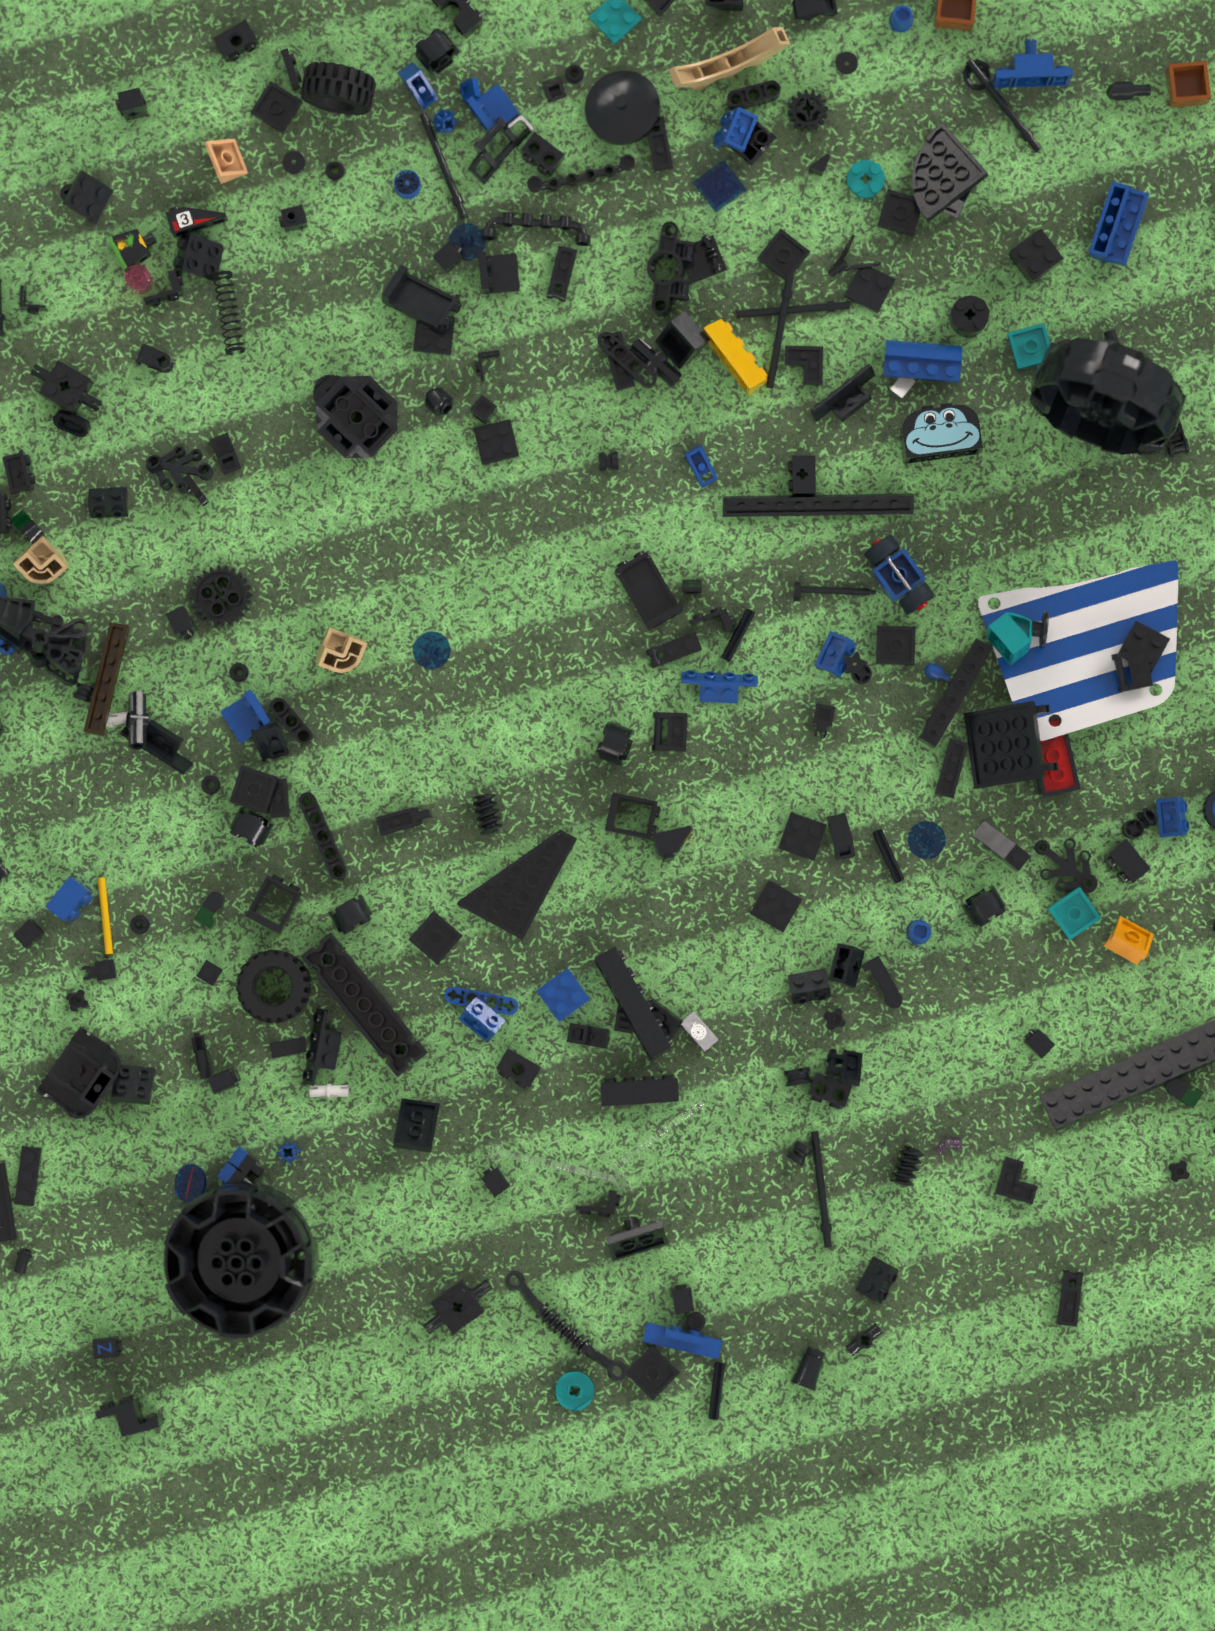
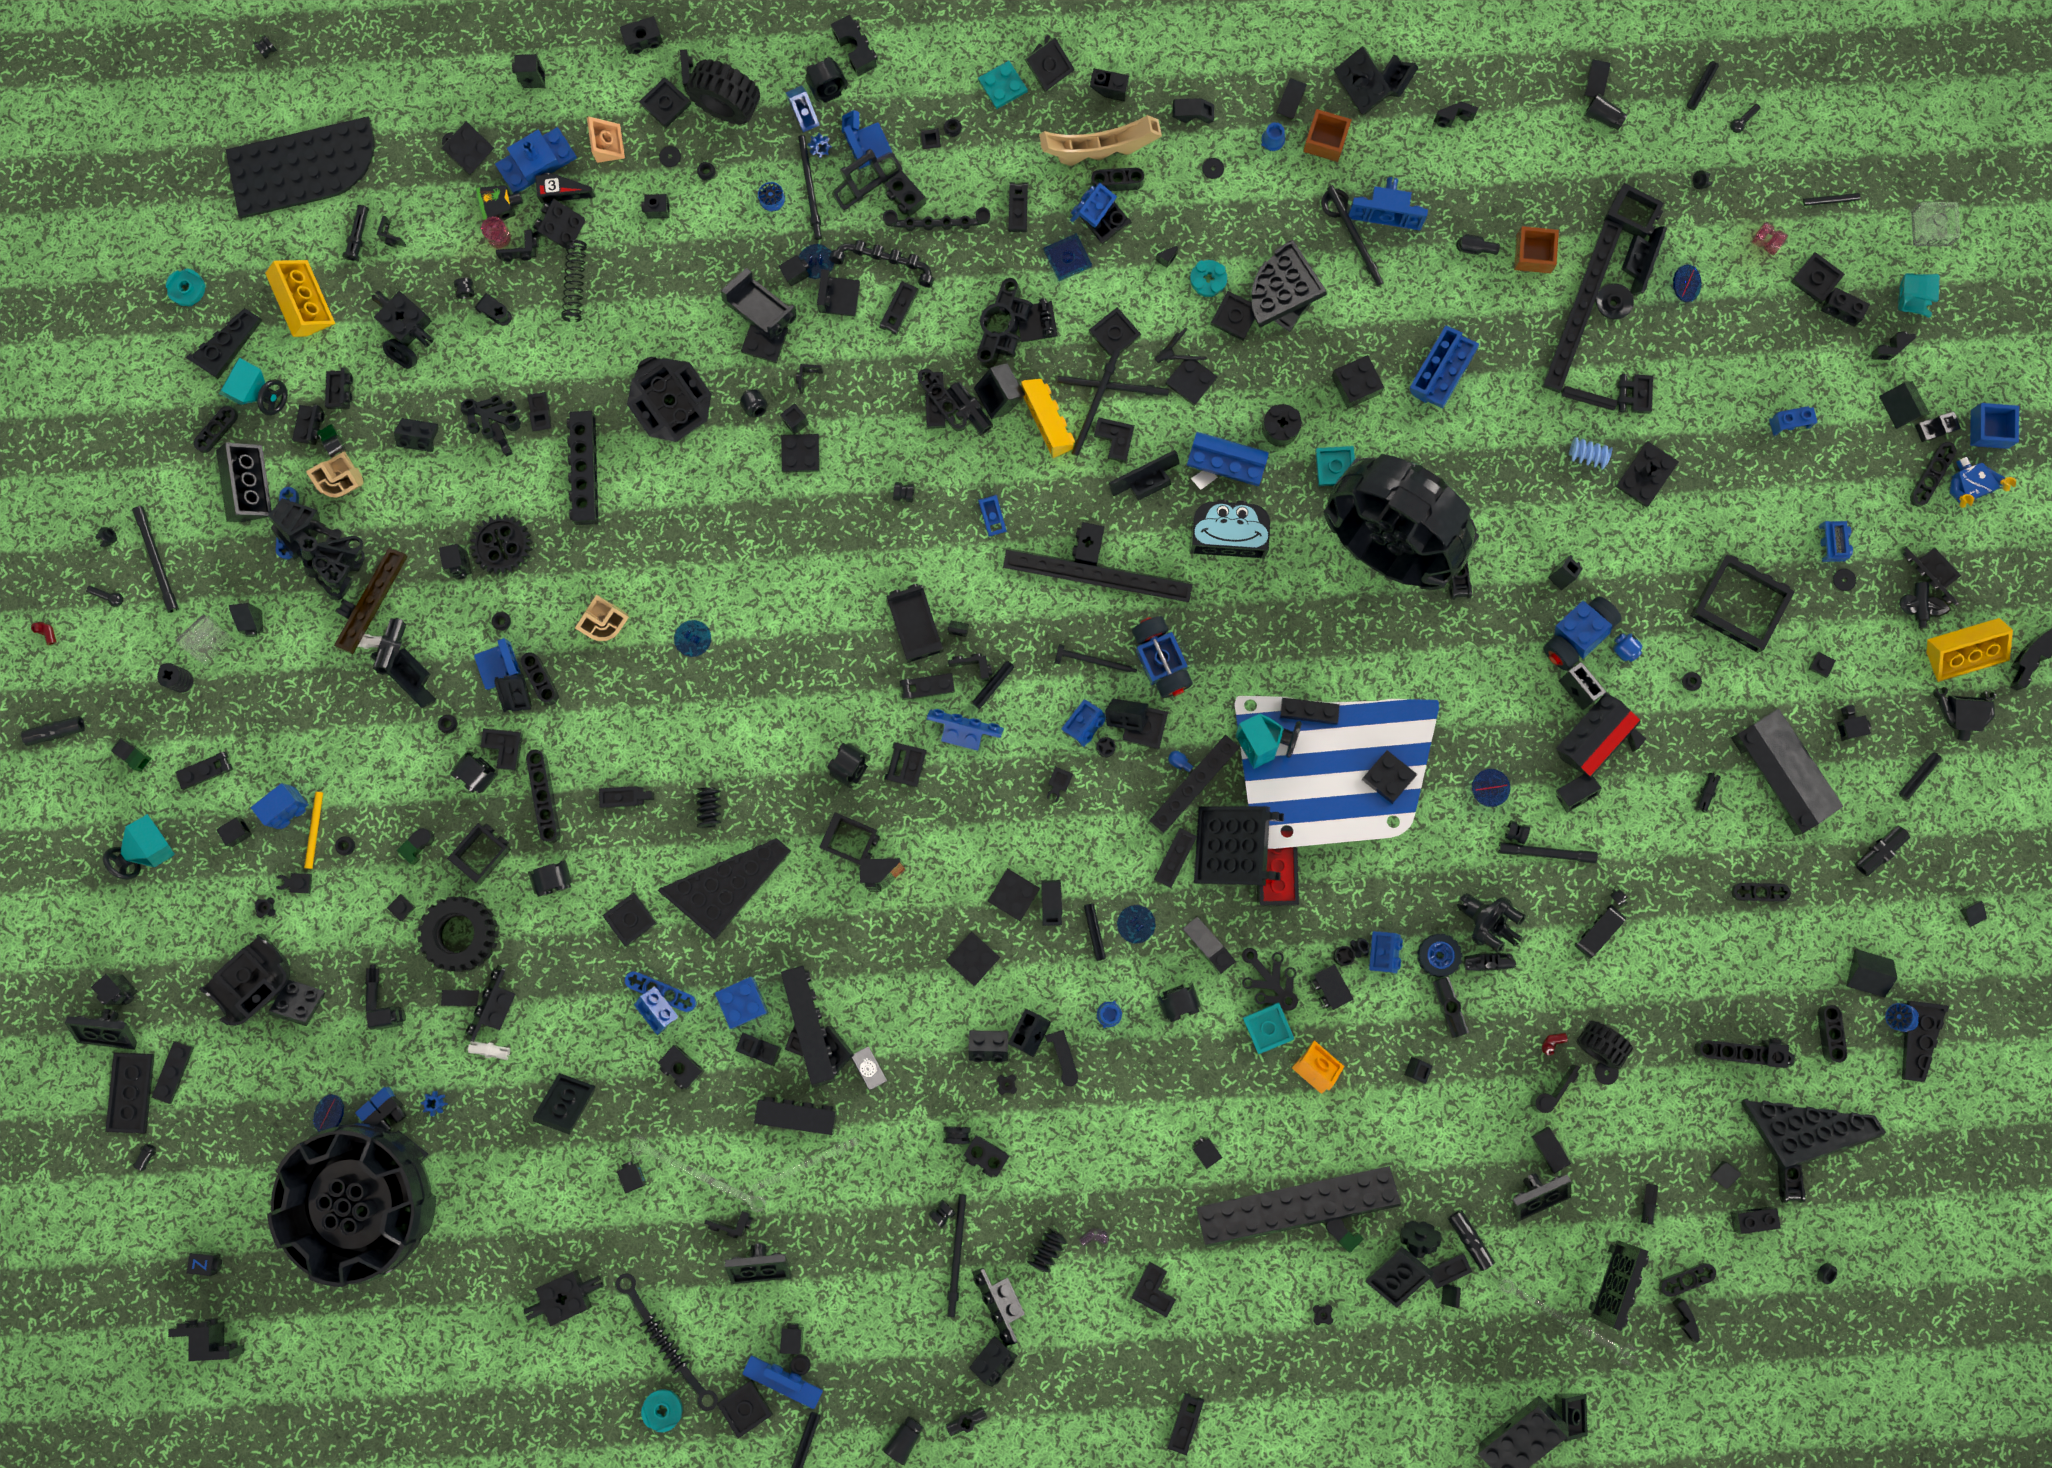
camera: 10 degrees right, 5 degrees down
(119, 343) = (464, 288): none -> black wheel
(157, 193) = (533, 157): none -> blue brick
(253, 789) = (485, 736): black plate -> none
(276, 454) = (577, 421): none -> black brick
(364, 1004) = (543, 971): black brick -> none
(622, 107) = (991, 166): black dish -> none
(815, 109) = (1158, 202): black gear -> none
(850, 1067) = (1012, 1135): black plate -> none
(854, 659) = (1100, 740): black plate -> none
(873, 1224) = (1001, 1302): none -> bracket
(876, 638) = (1127, 714): none -> black hinge
(1053, 597) = (1309, 711): none -> black plate
(1138, 667) = (1380, 797): black plate -> none

